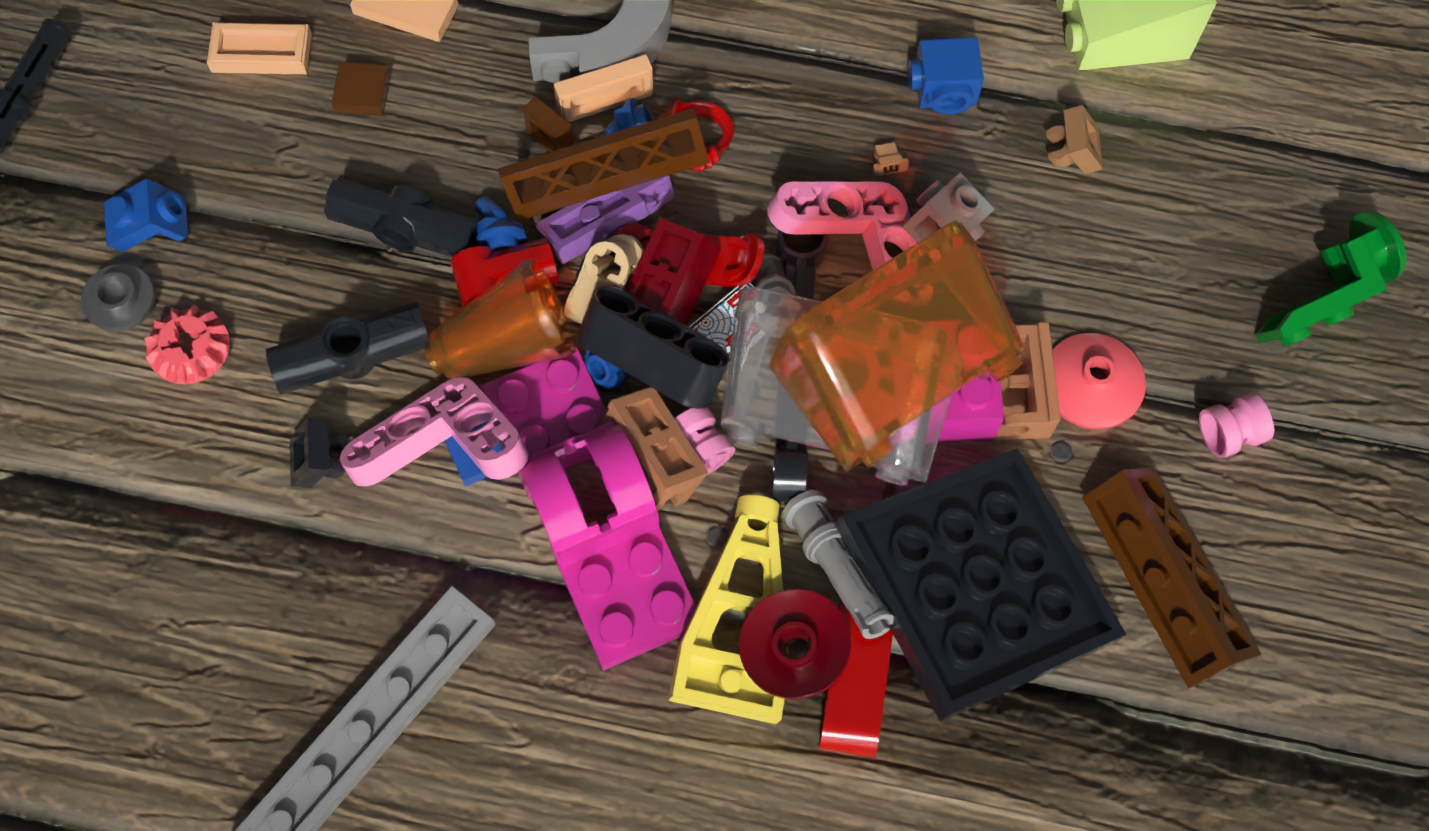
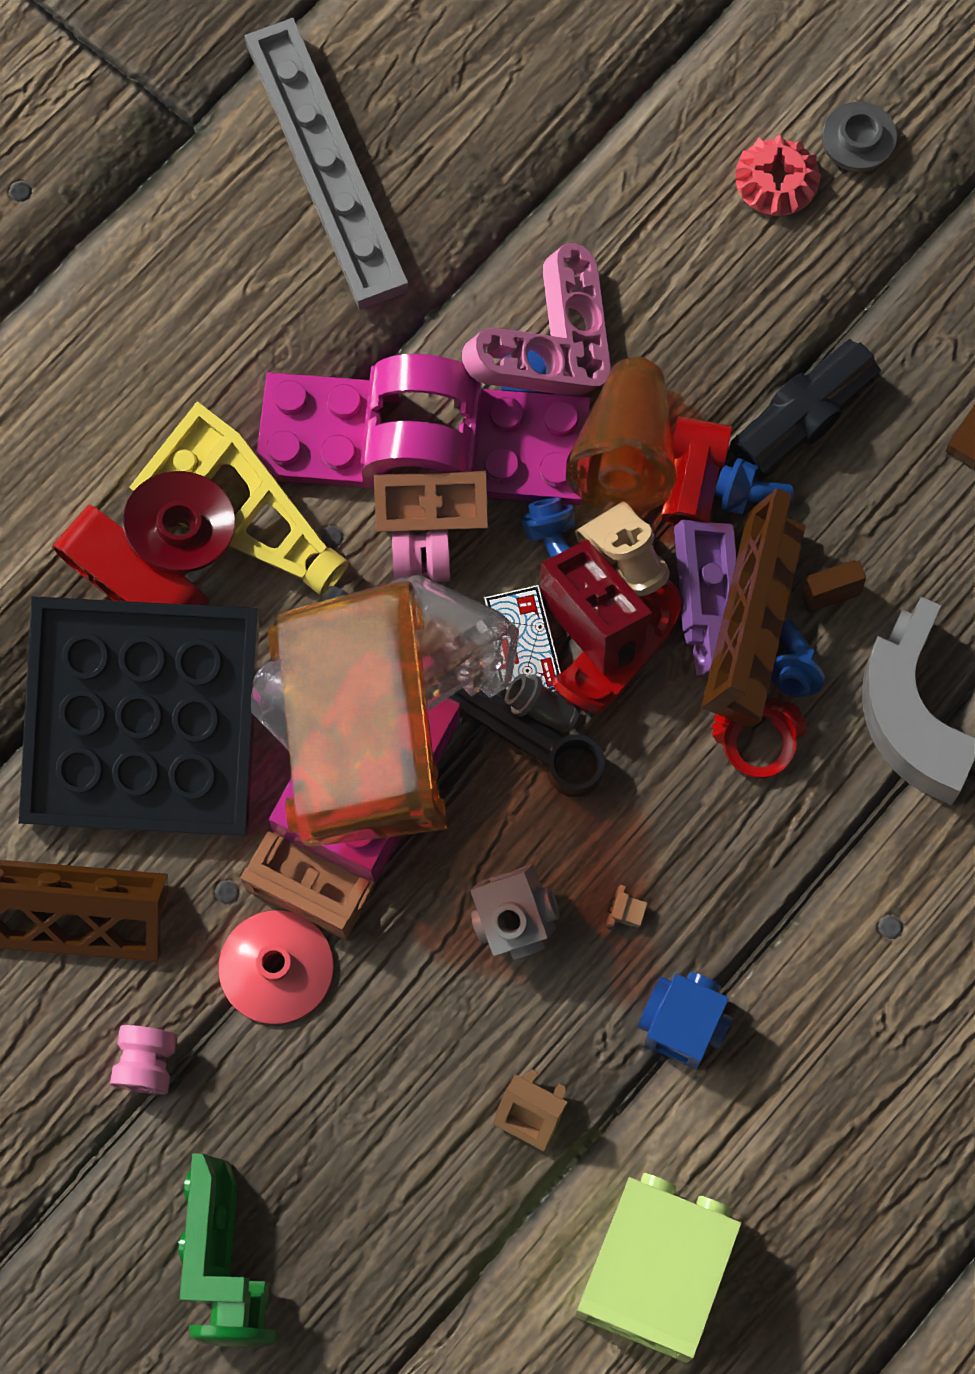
camera: 125 degrees right, 5 degrees up
(144, 213) = (933, 190): blue bracket -> none
(311, 455) = (602, 227): black tile -> none
(318, 356) = (696, 274): black piece -> none
(604, 88) = (852, 662): light nougat tile -> none
(653, 347) = (550, 542): black beam -> none
(825, 546) = (177, 589): light grey pin -> none
(873, 223) = (544, 840): bright pink beam -> none

